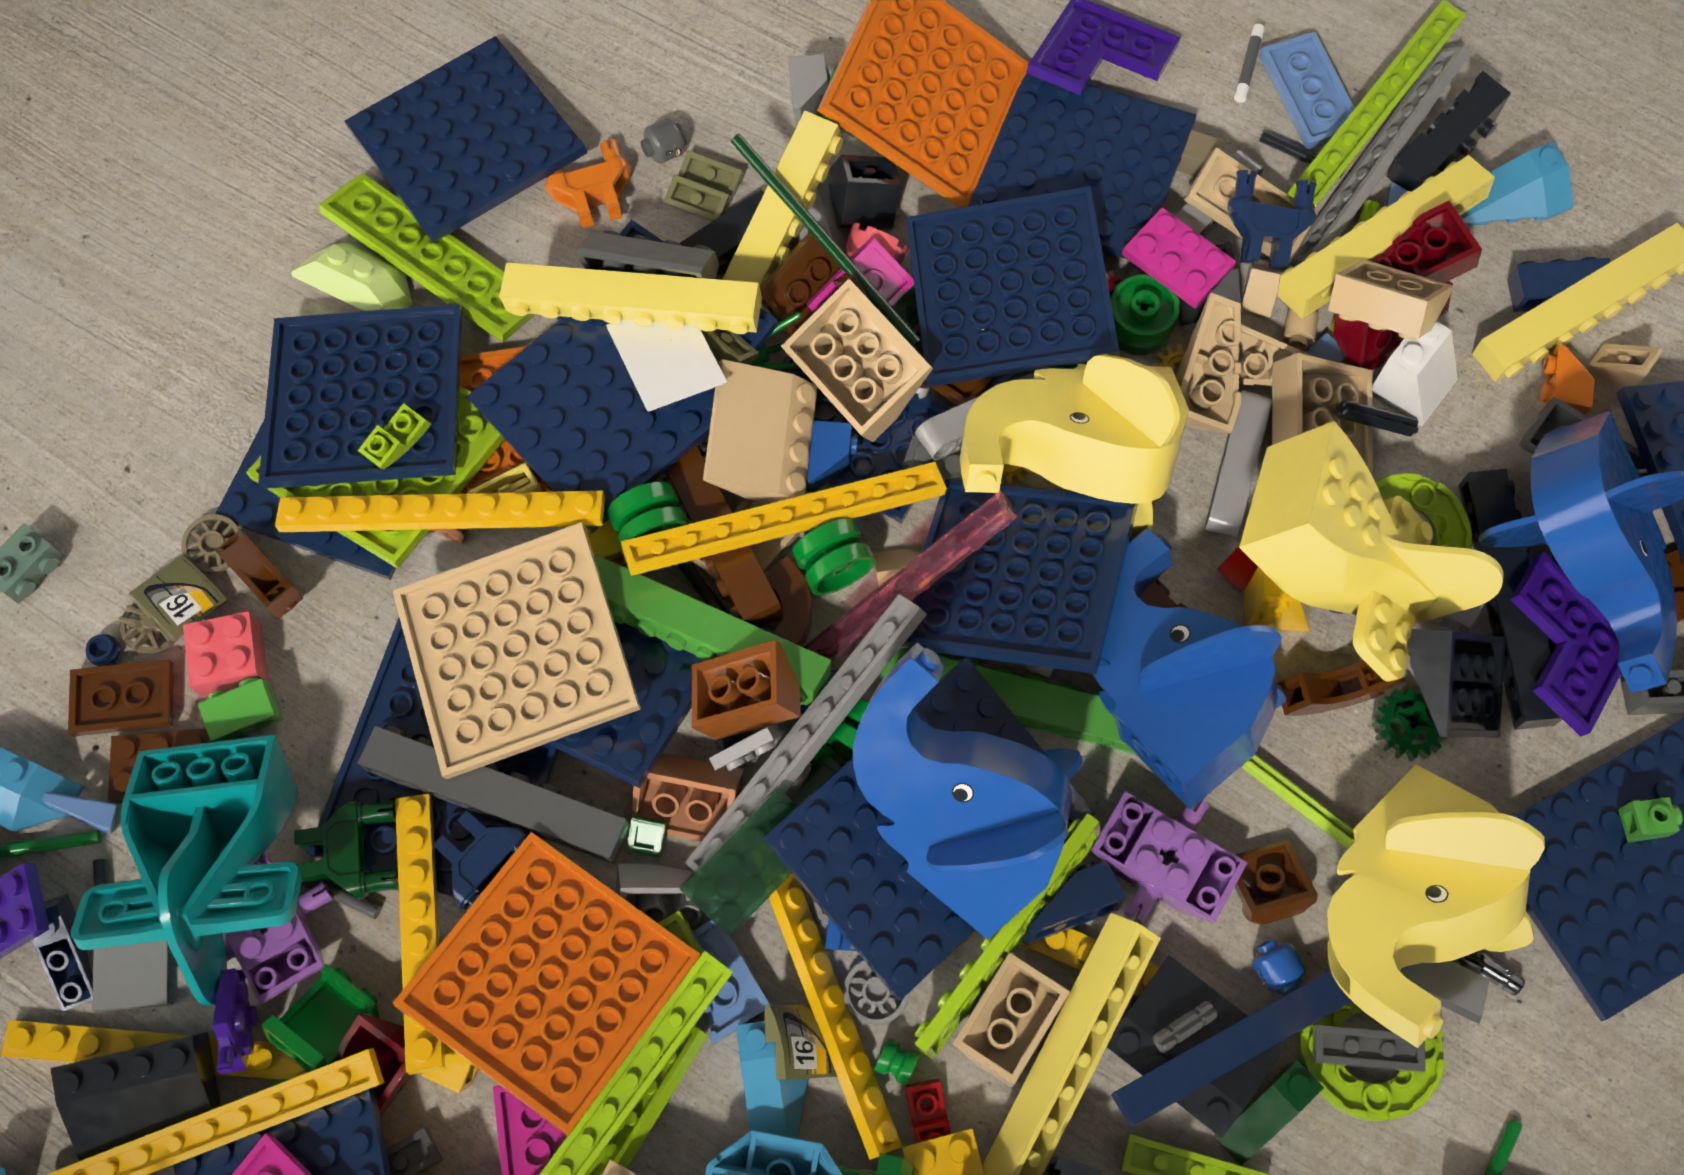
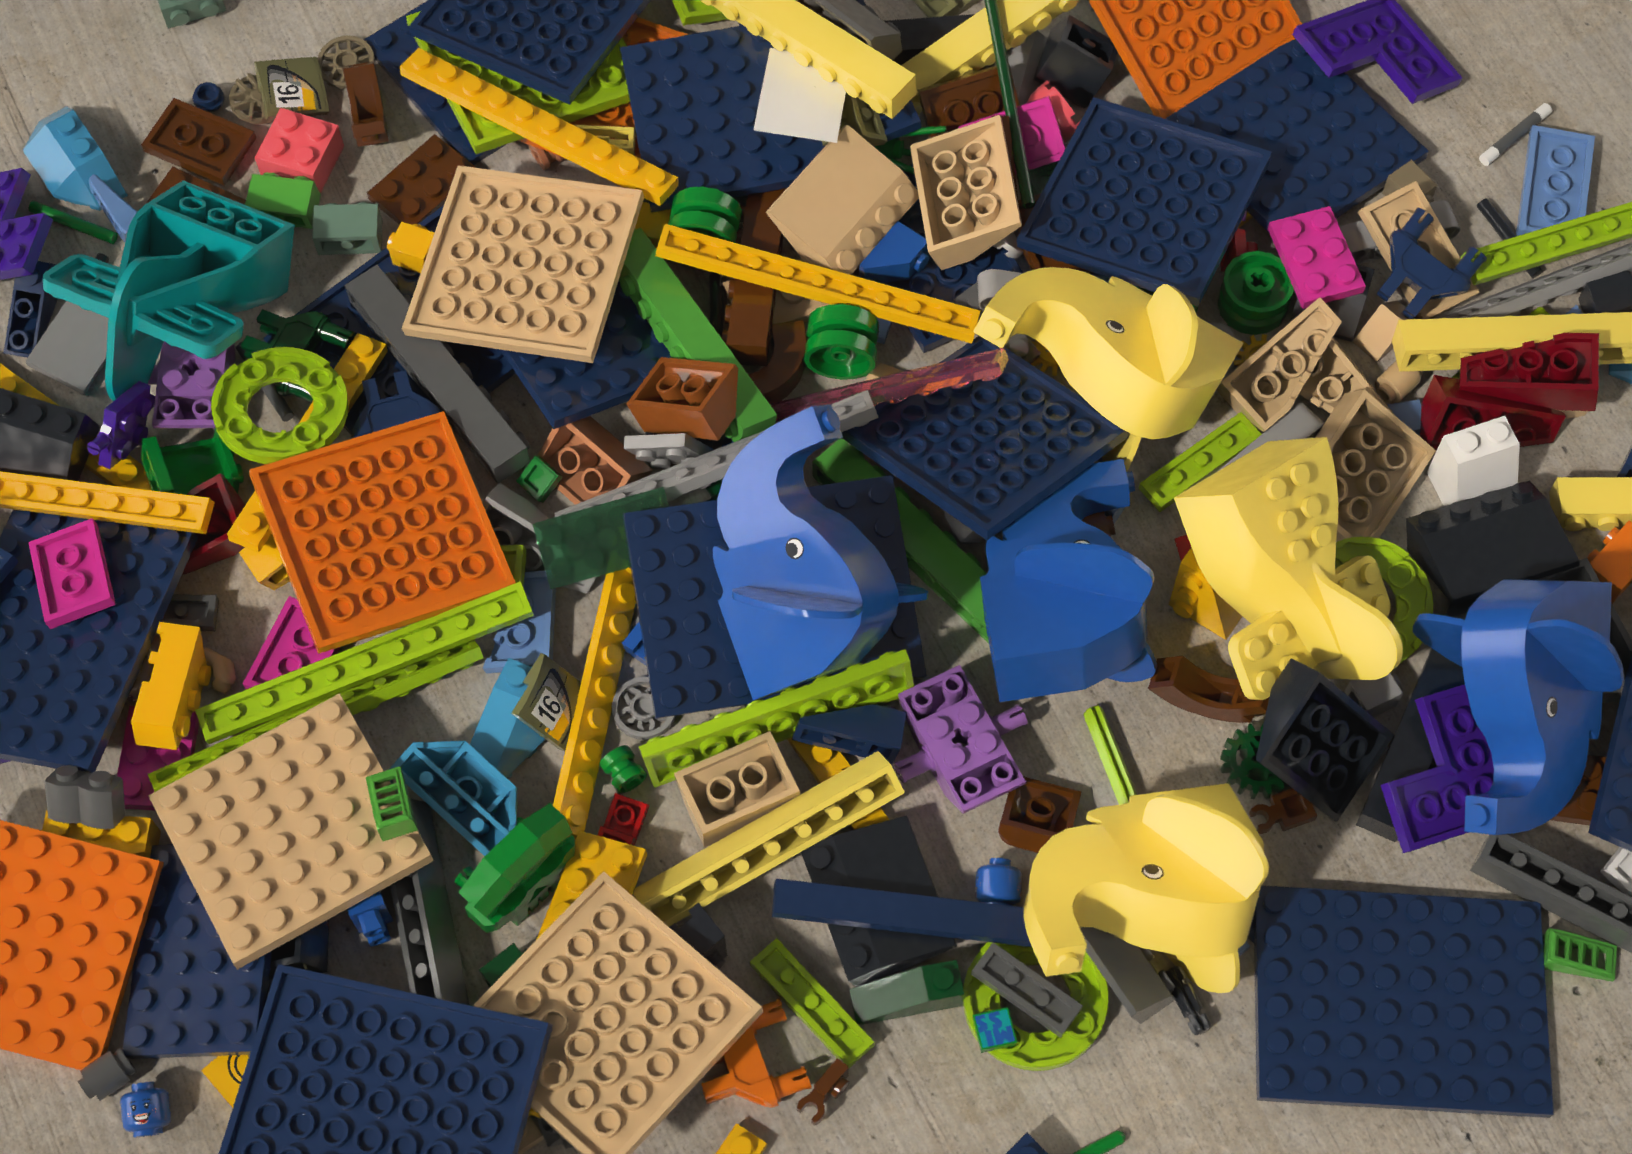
camera: 30 degrees right, 5 degrees down
(319, 703) = (347, 228): none -> sand green brick
(347, 878) = (271, 366): none -> lime plate
(358, 619) = (418, 183): none -> reddish brown plate
(394, 688) = (410, 246): none -> yellow brick
(396, 438) = (531, 50): lime slope -> none
(1184, 1026) = (876, 871): dark grey axle -> none
(1192, 487) = (1199, 461): none -> lime plate
(1364, 1101) = (994, 1030): none -> tile
(1377, 418) = (1403, 485): black axle -> none
(1388, 298) = (1476, 384): tan slope -> none
(1459, 753) = (1287, 809): none -> reddish brown plate
(1470, 427) = (1489, 540): none -> black slope
(1650, 819) = (1407, 961): bright green brick -> none

